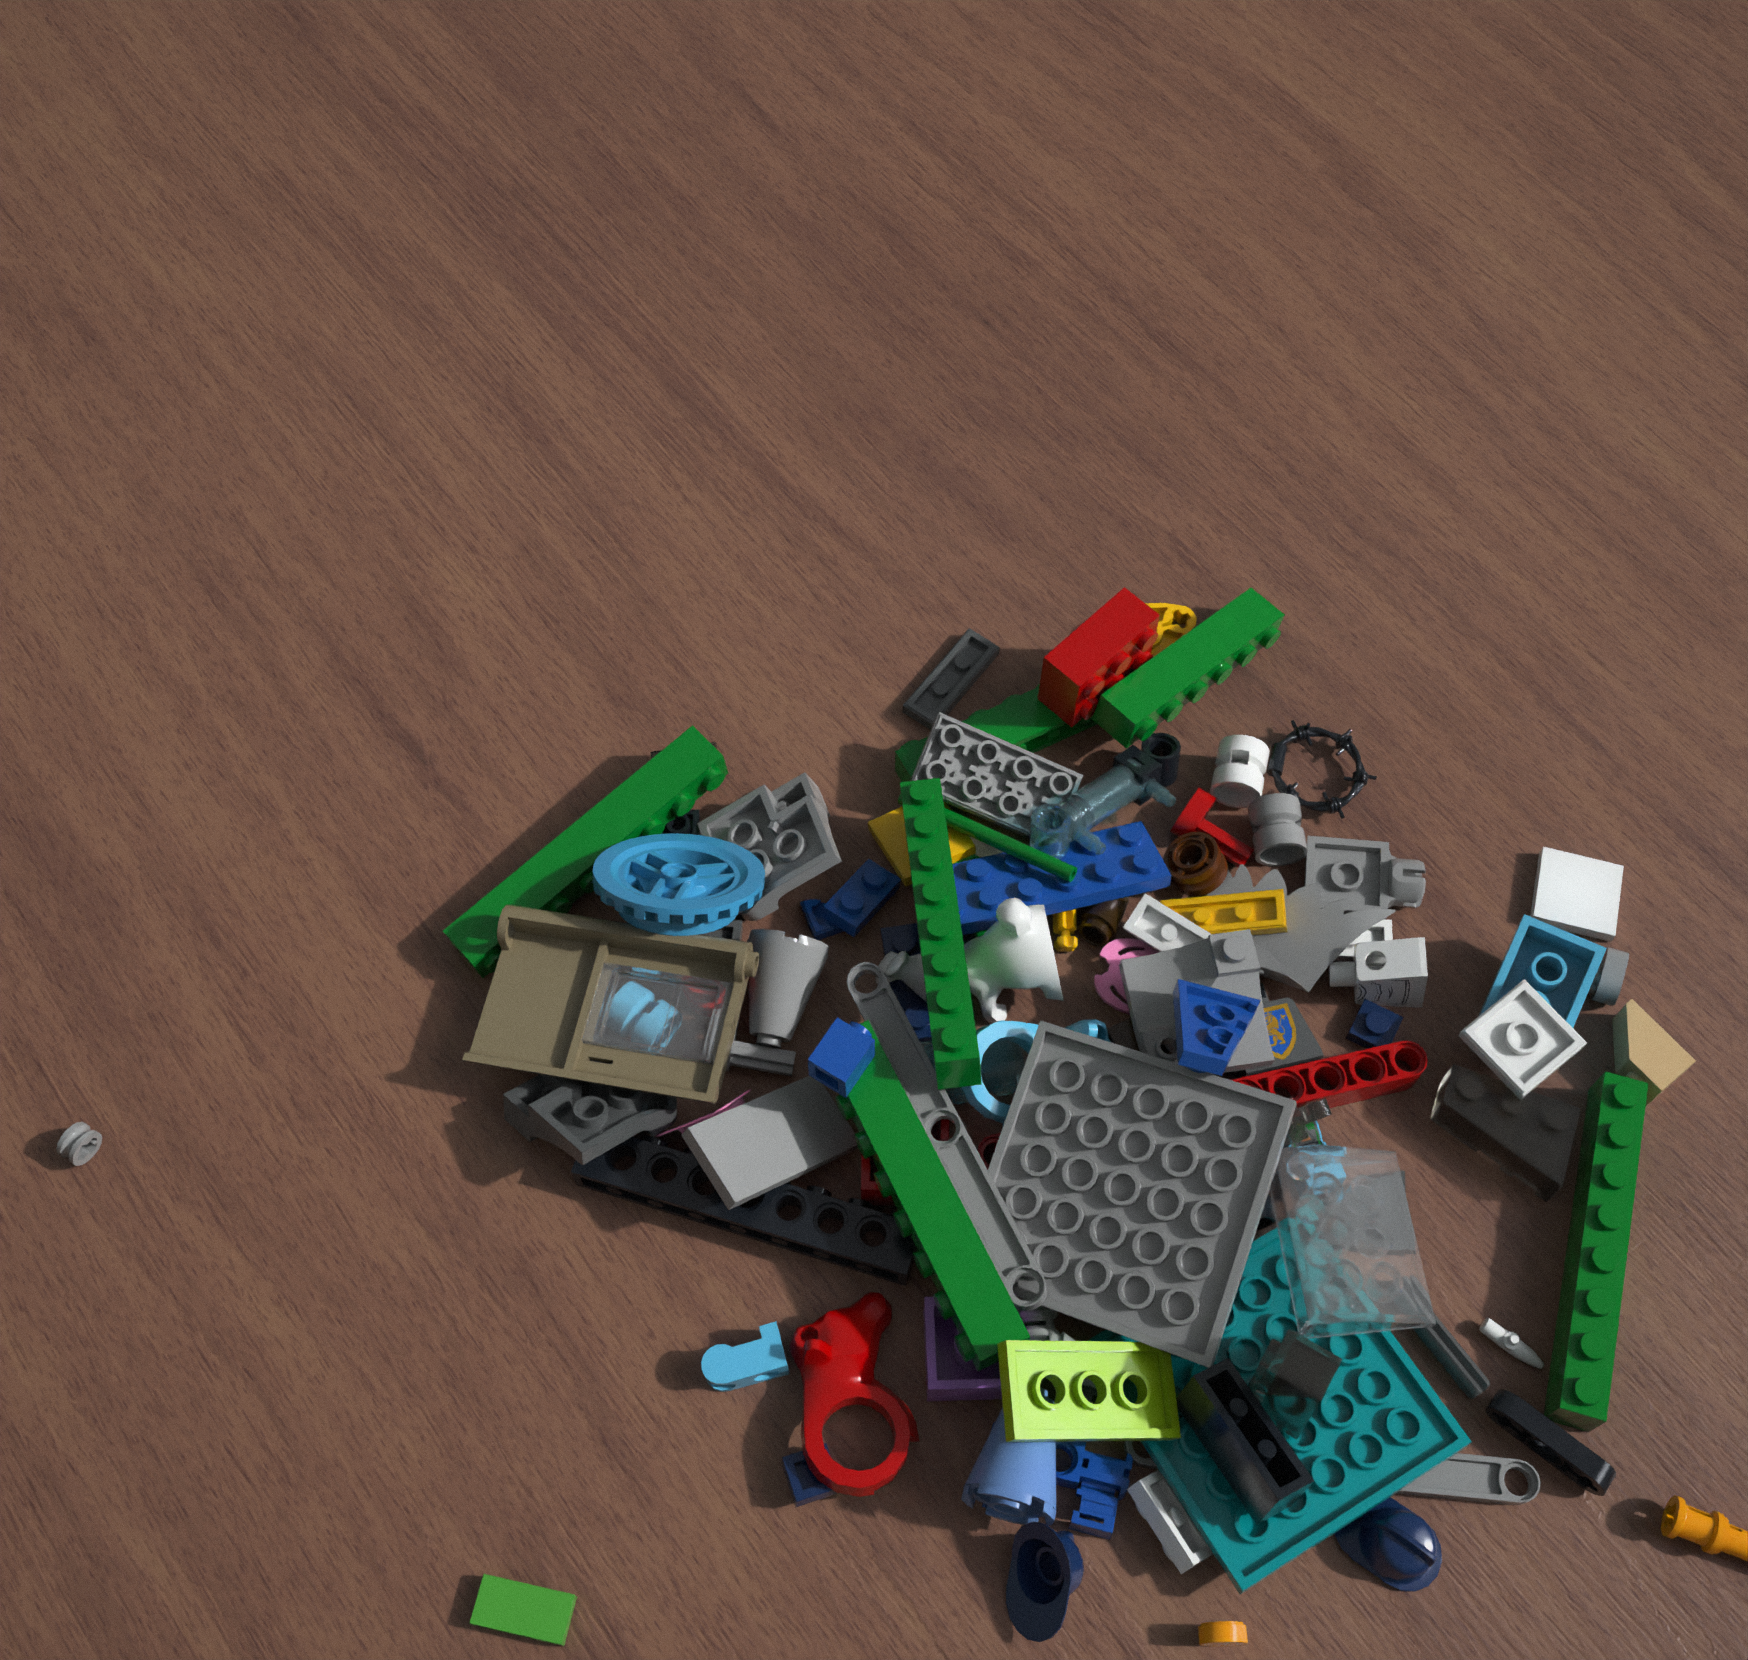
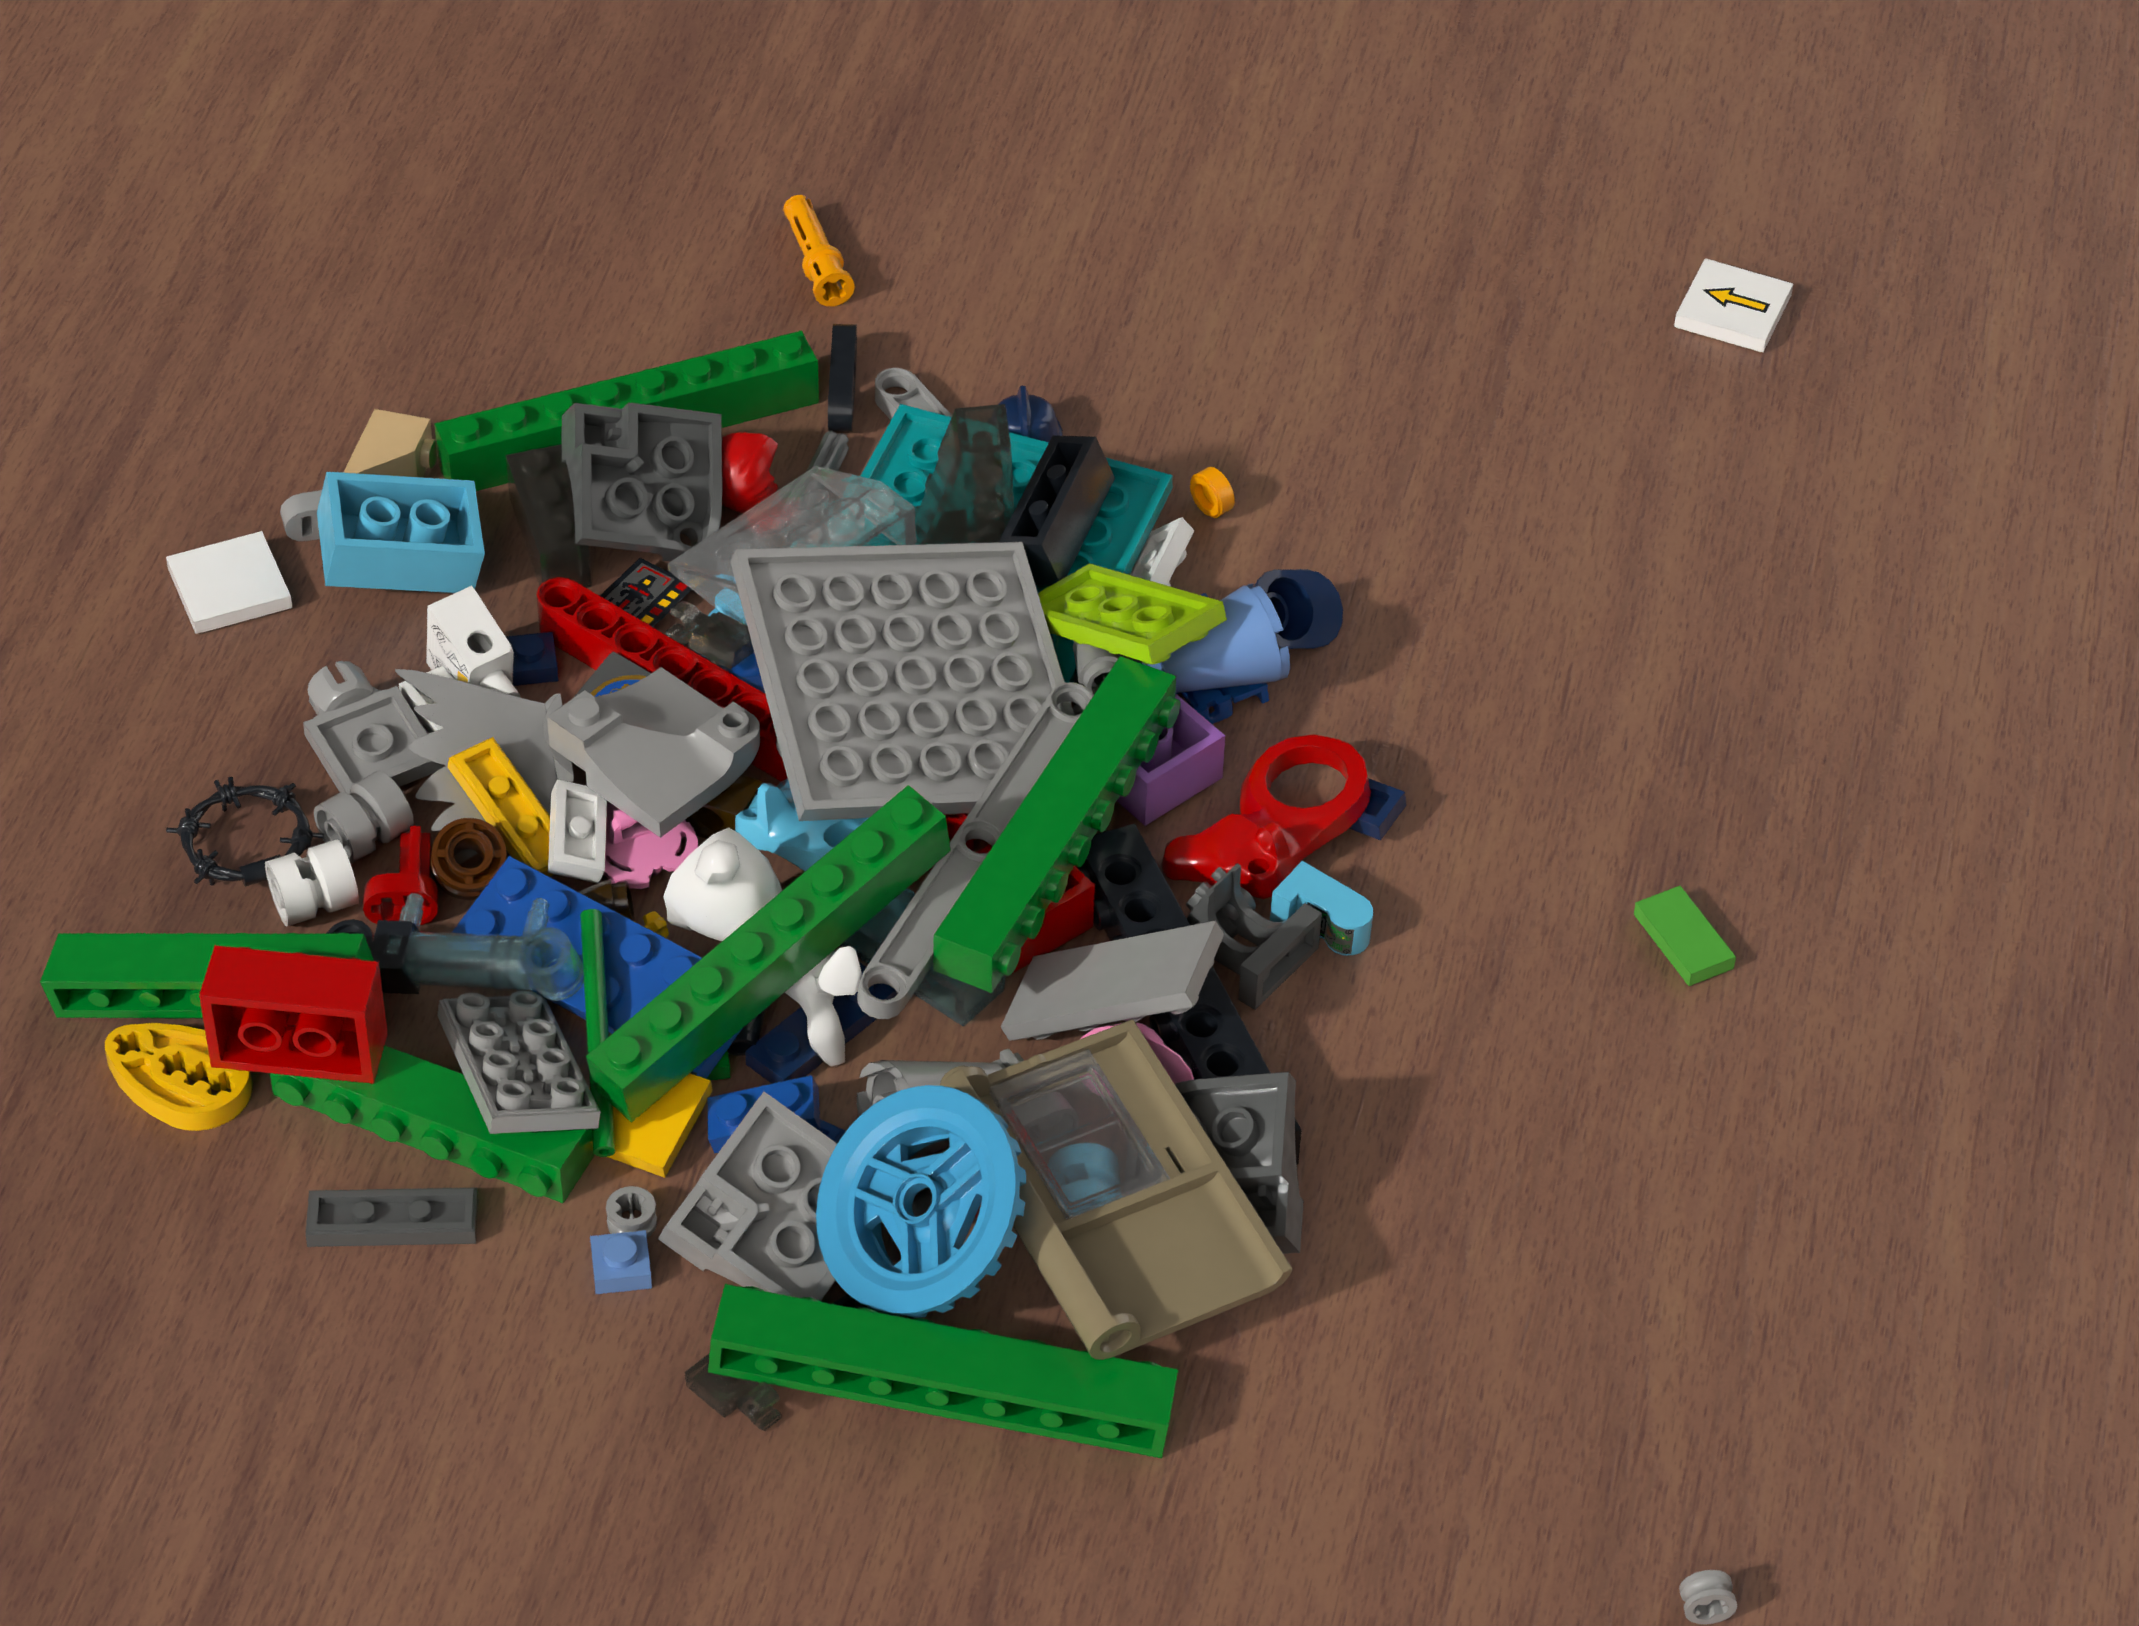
camera: 130 degrees left, 15 degrees down
(739, 1293) = (1280, 945): none -> dark grey tile
(823, 765) = (620, 1262): none -> medium blue plate
(842, 1056) = (999, 908): blue brick -> none
(859, 783) = (631, 1199): none -> light grey bush
(1209, 1025) = (694, 680): blue wing -> none
(1389, 1126) = (646, 591): none -> piece
(1471, 1274) = (747, 470): none -> red hair
(1486, 1172) = (643, 476): none -> dark grey slope
(1510, 1343) = (772, 430): white helmet -> none
(1522, 1039) = (477, 502): white tile -> none

